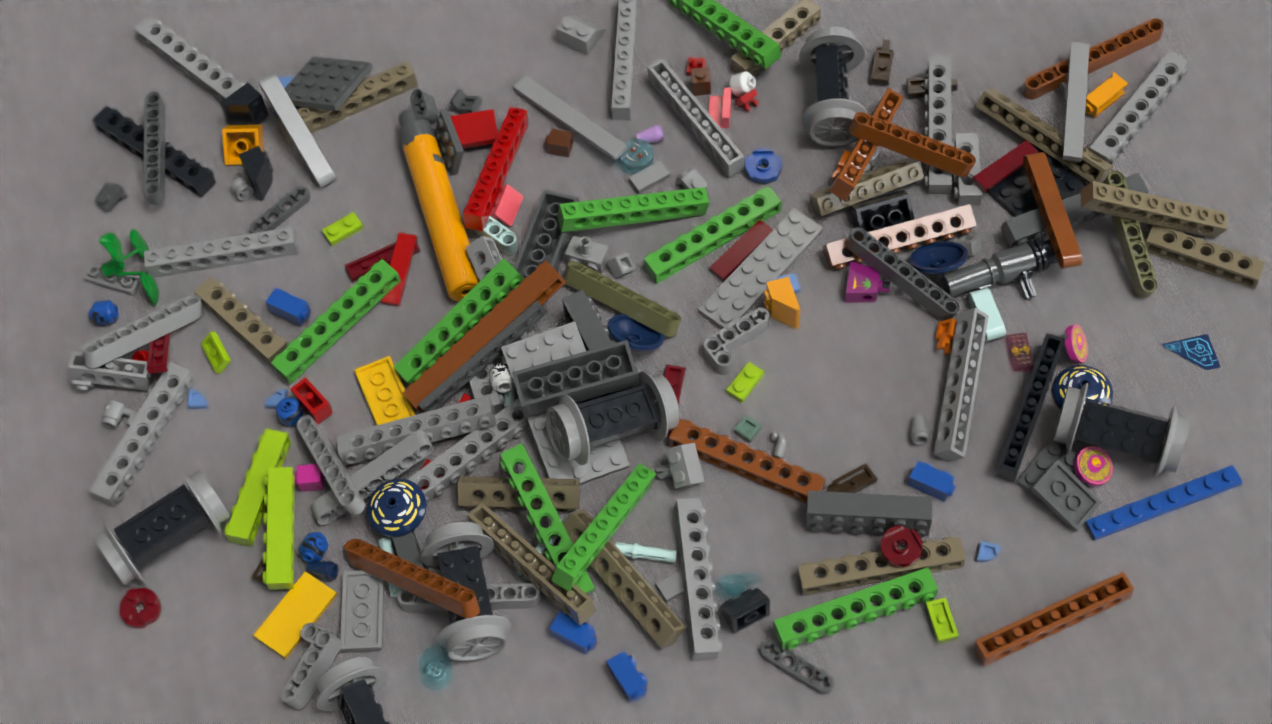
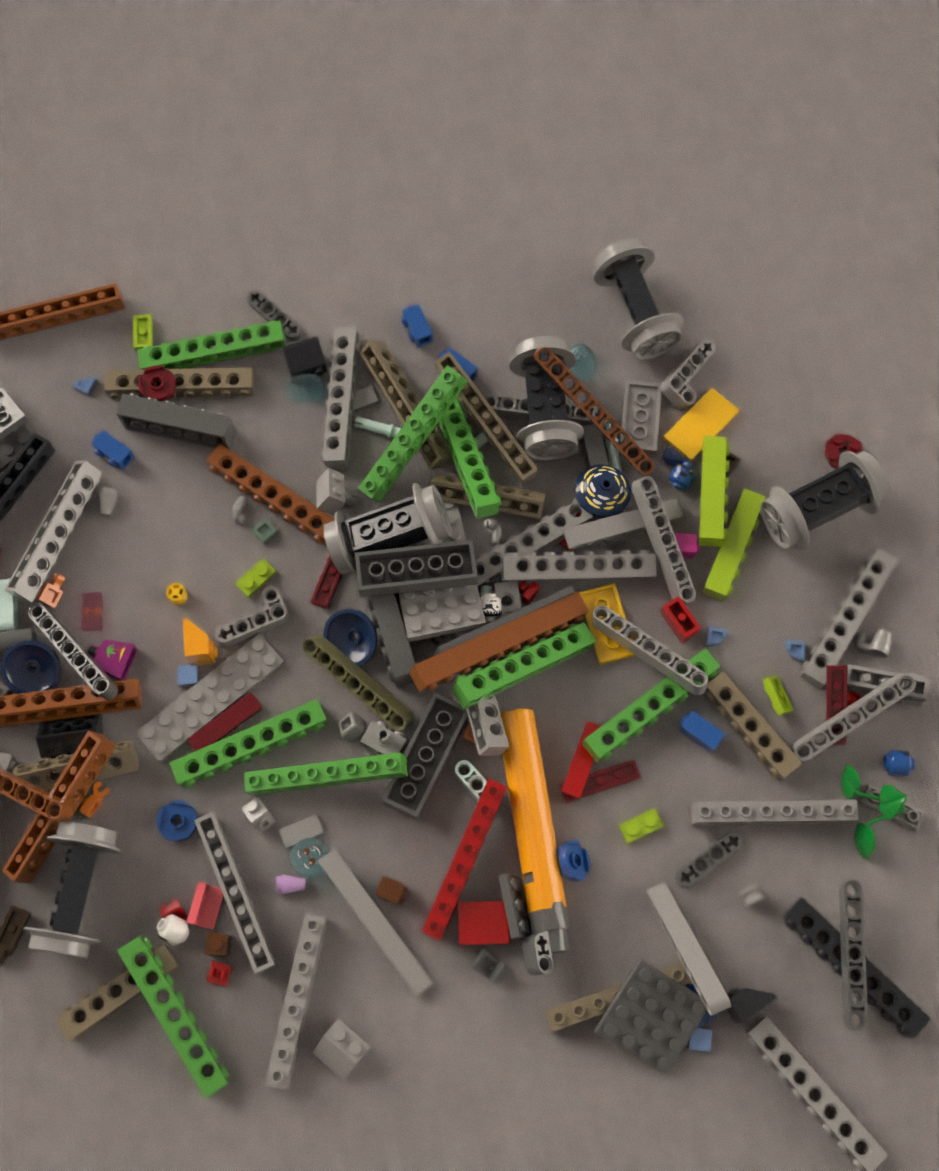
camera: 175 degrees left, 10 degrees up
(109, 196) = (901, 914): dark grey bracket -> none
(240, 139) = (750, 958): light orange slope -> none
(258, 170) = (733, 906): black slope -> none
(289, 411) = (704, 613): blue head -> none
(336, 352) = (654, 657): none -> light grey beam
(400, 185) = (571, 869): none -> blue plate
(507, 205) = (459, 819): coral panel -> none
(820, 347) = (175, 590): none -> yellow wheel
(854, 480) = (185, 460): dark brown hinge -> none
(901, 326) = (91, 611): none -> clear pink tile

